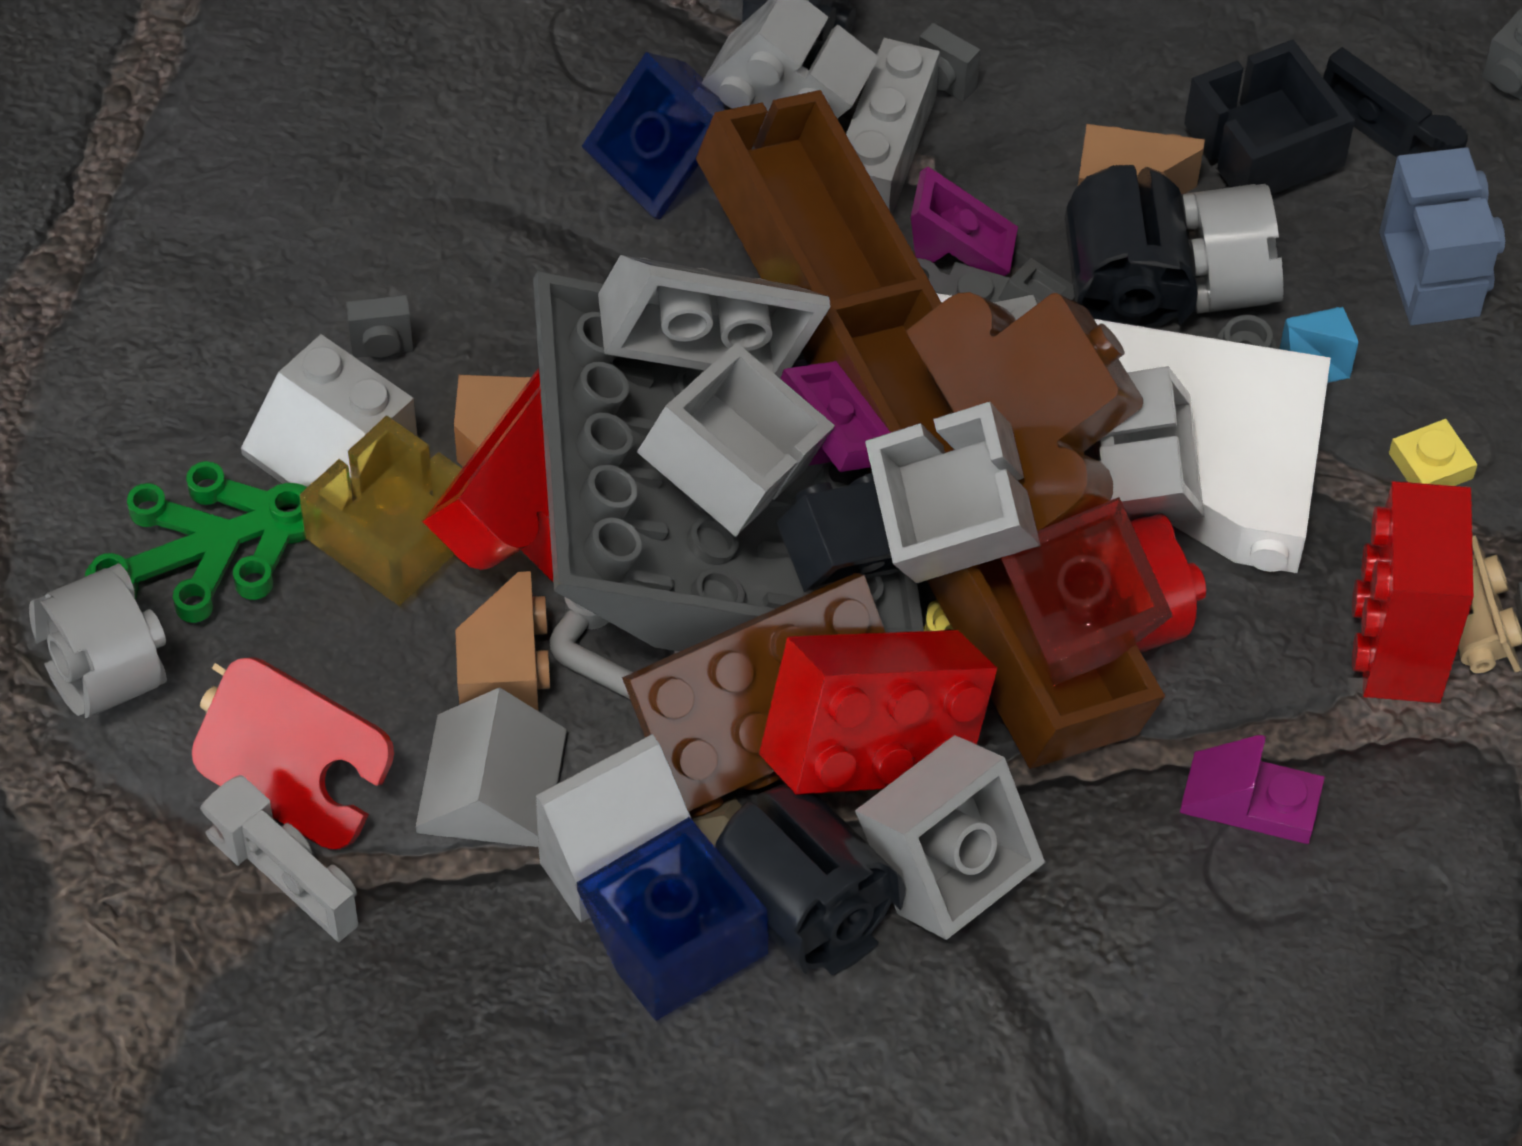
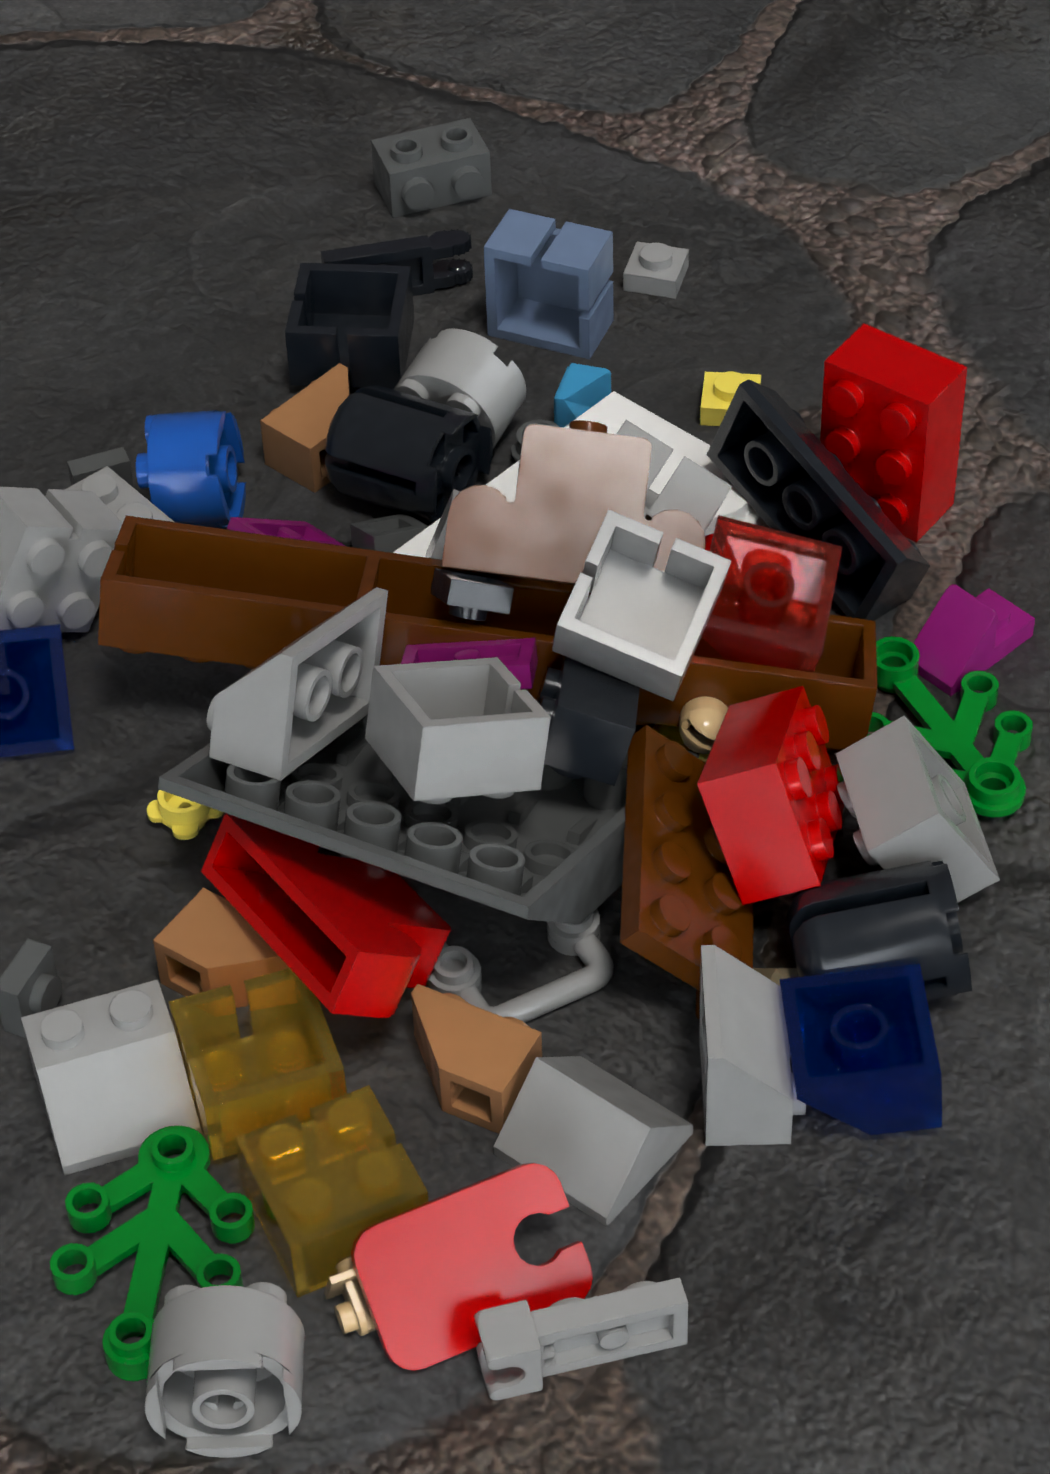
camera: 55 degrees left, 10 degrees down
(304, 618) = (326, 1183): none -> clear yellow piece
(896, 368) = (471, 594): none -> plate
(948, 617) = (706, 717): none -> tan hinge
(992, 113) = (193, 467): none -> blue brick
(1115, 831) = (991, 781): none -> green plant
(1288, 581) = (809, 493): none -> black slope

